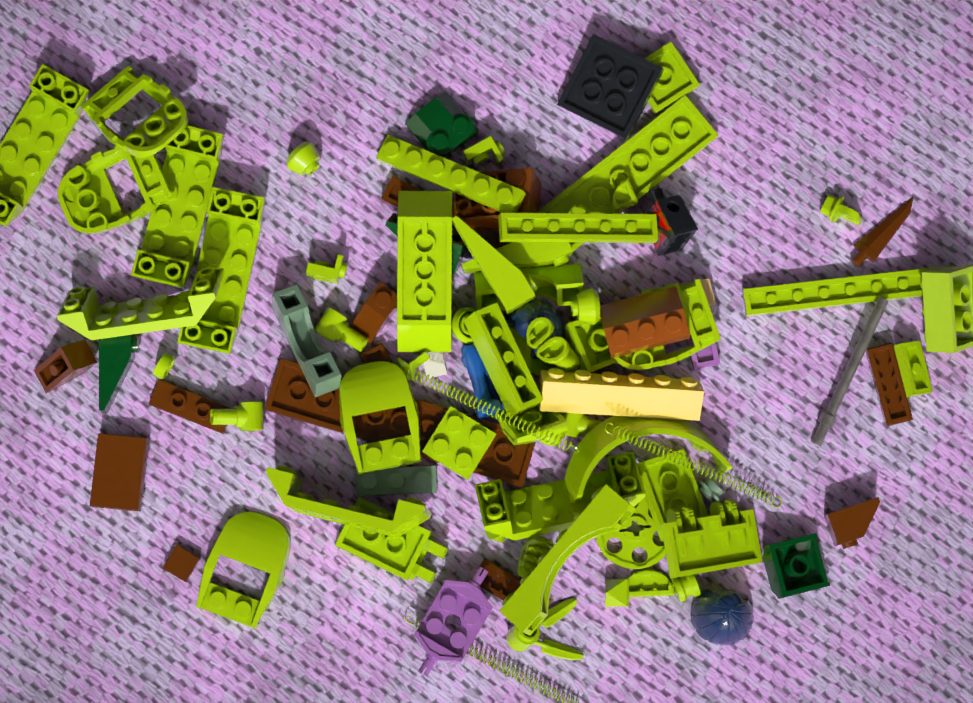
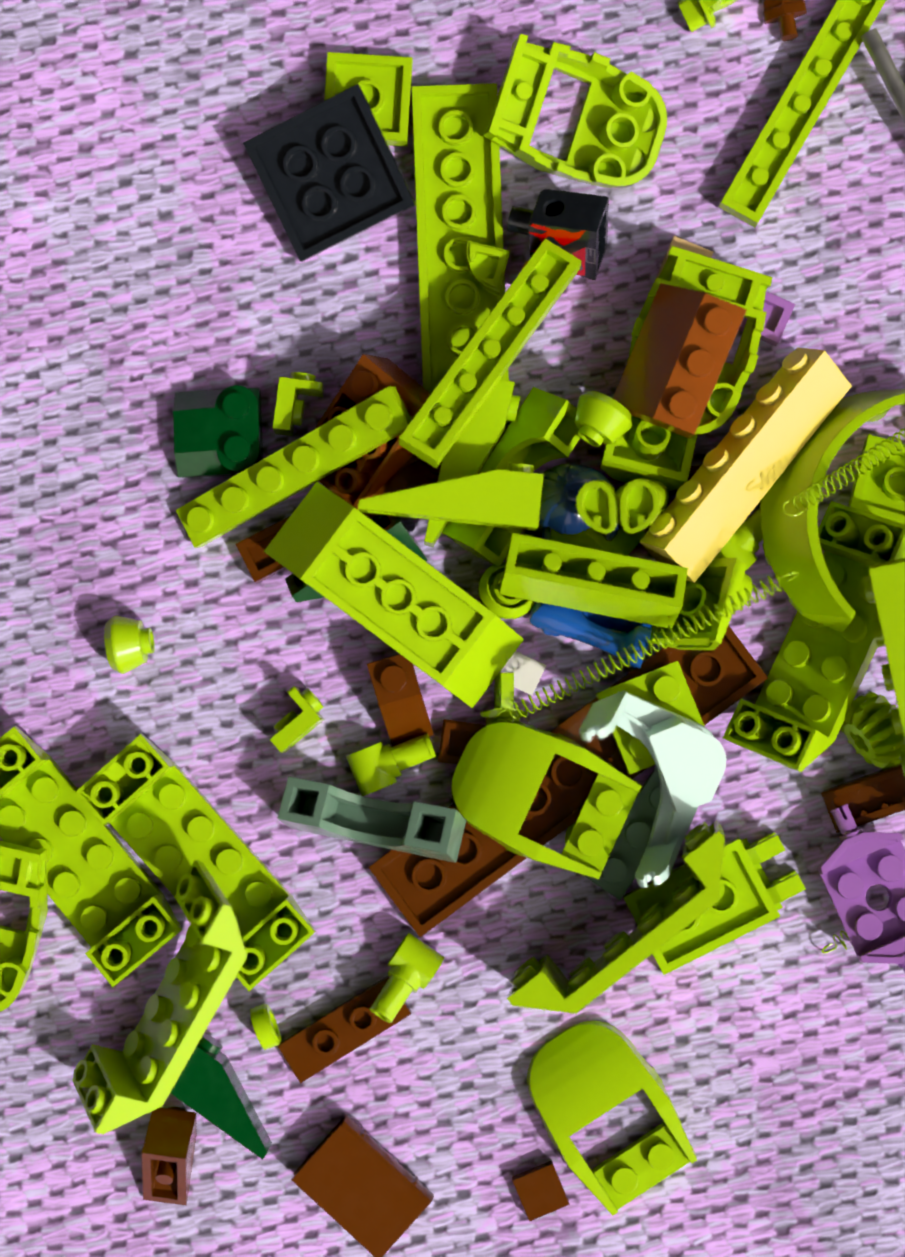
camera: 45 degrees left, 5 degrees up
(450, 470) = (687, 765): none -> light aqua piece
(741, 211) = (616, 128): none -> lime slope

